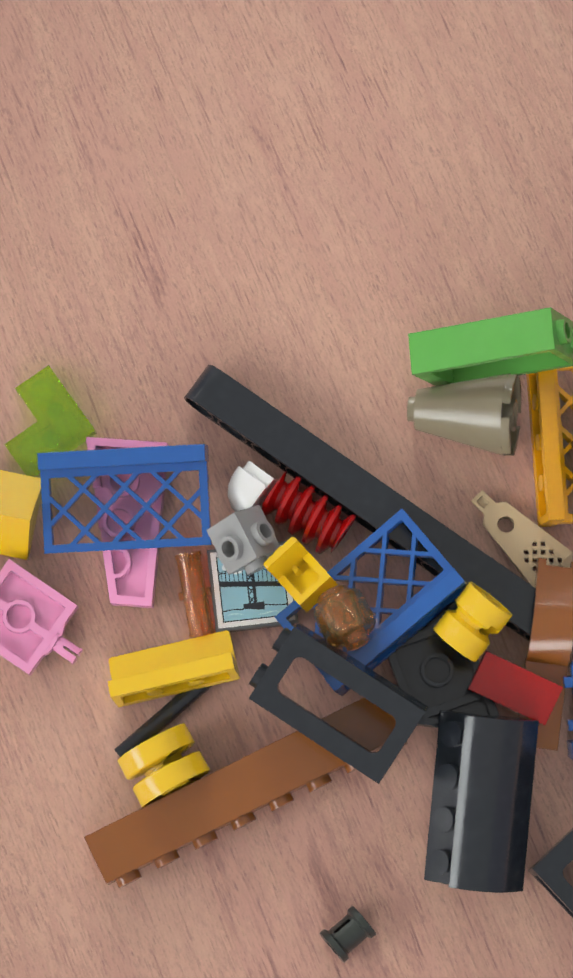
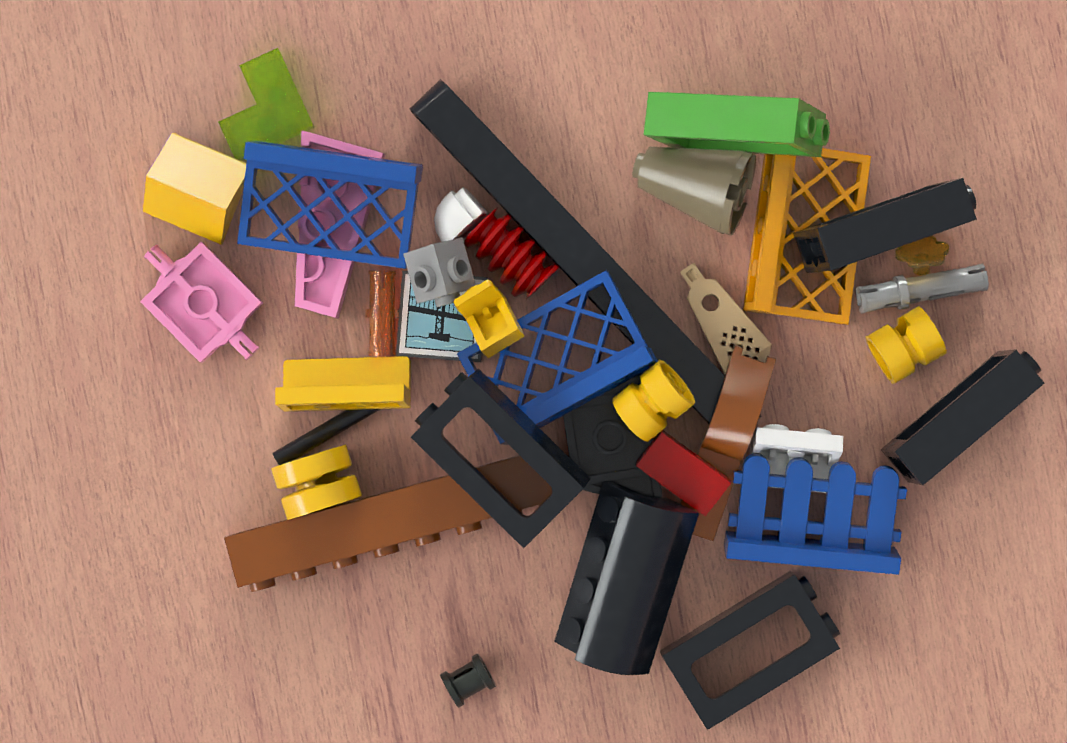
camera: 10 degrees right, 10 degrees up
(344, 617) = (524, 372): clear orange head -> none

